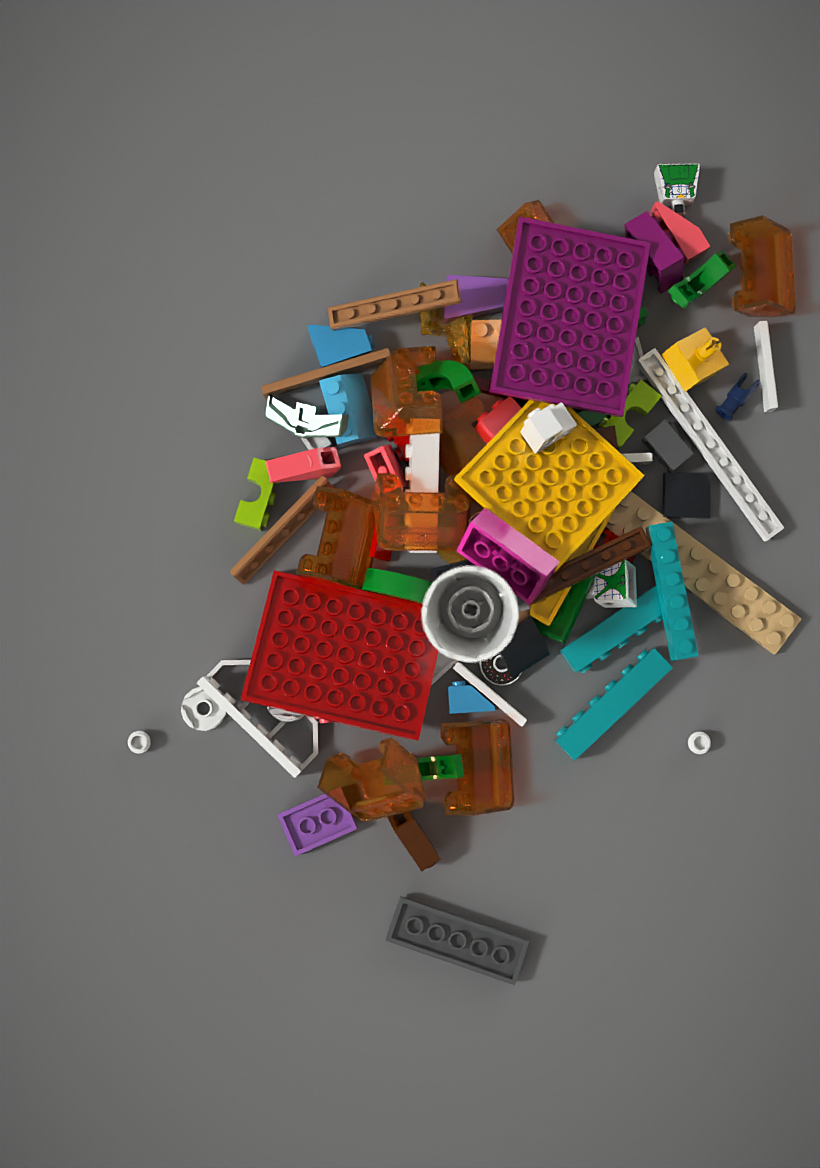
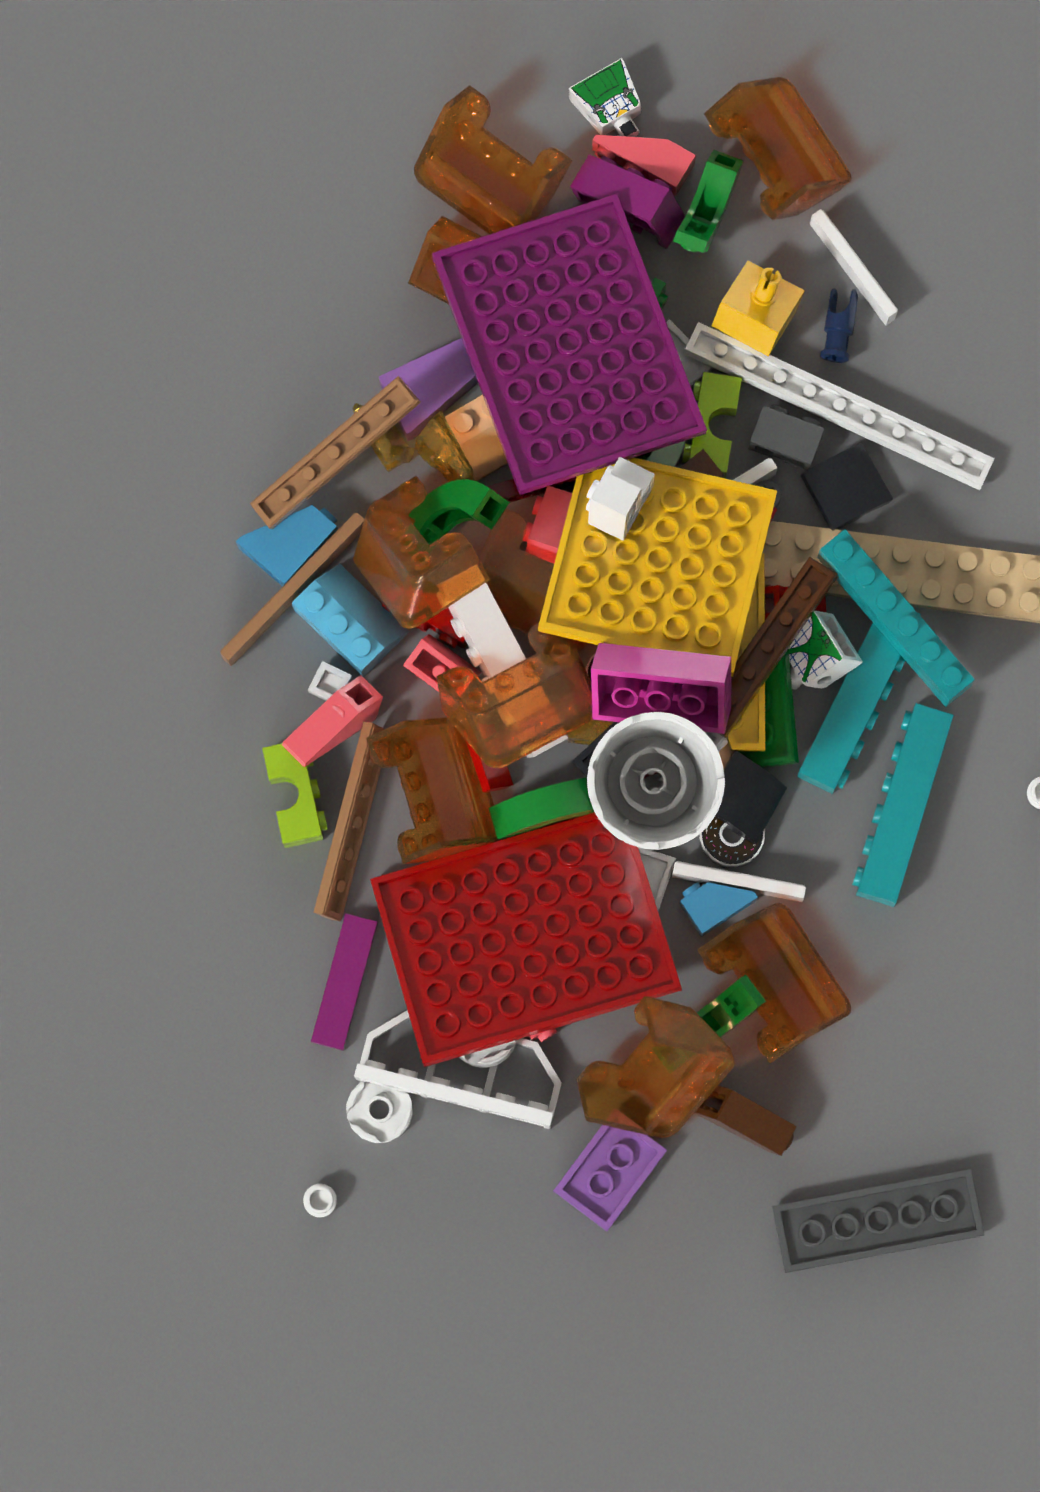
camera: 20 degrees left, 5 degrees down
(225, 622) = (344, 982): none -> magenta tile
(305, 419) = (301, 662): plate -> none
(576, 185) = (481, 172): none -> clear orange windscreen

